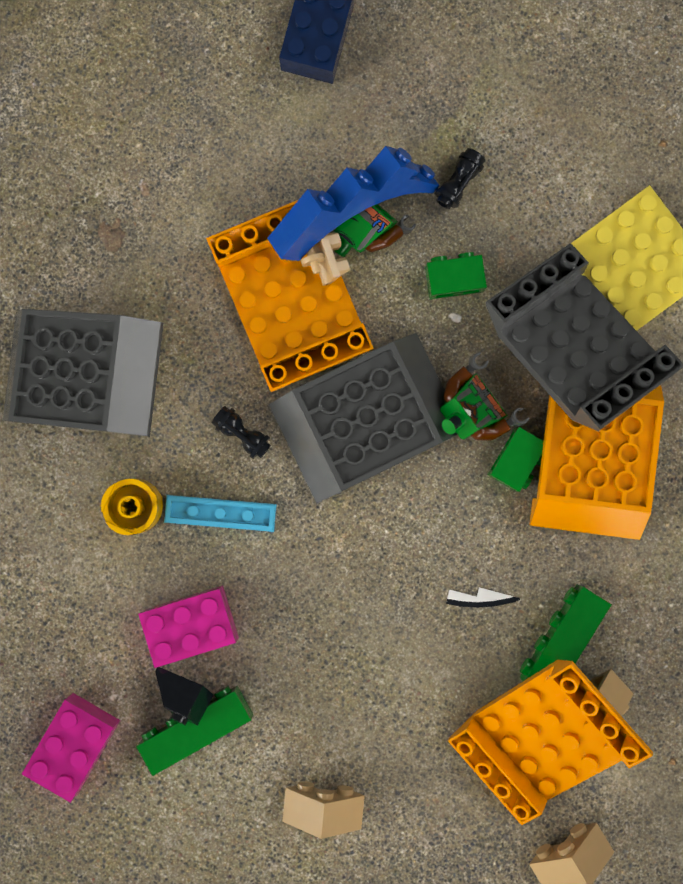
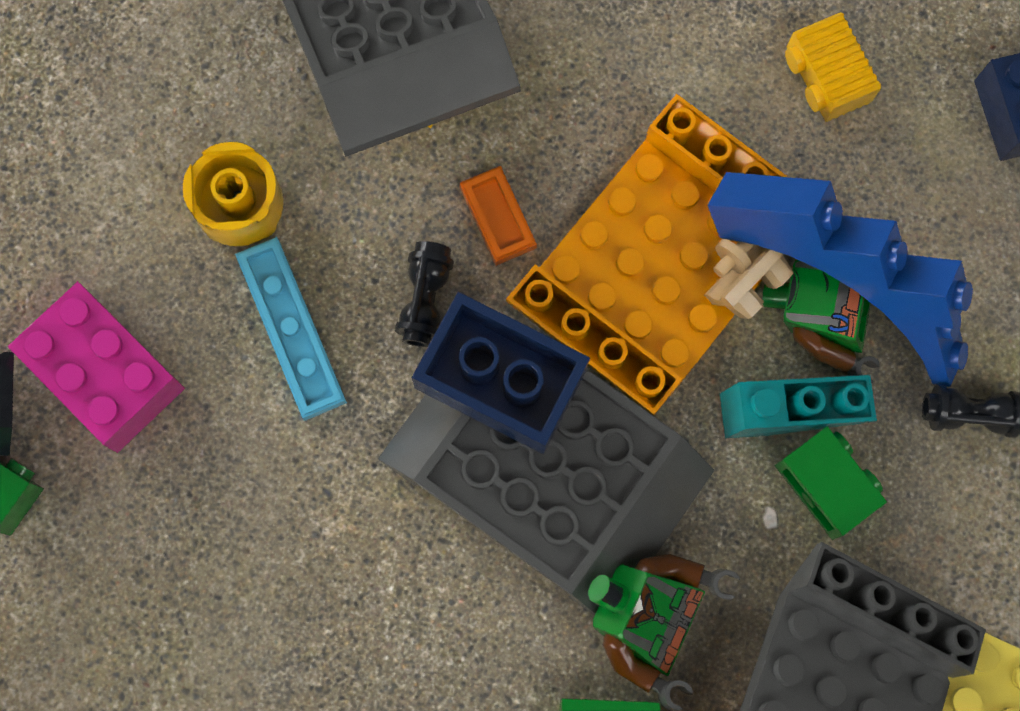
camera: 60 degrees right, 10 degrees down
(217, 370) = (498, 215): none -> orange tile
(233, 144) = (832, 67): none -> yellow brick
(313, 416) = (500, 372): none -> dark blue brick
(407, 270) = (796, 405): none -> teal slope

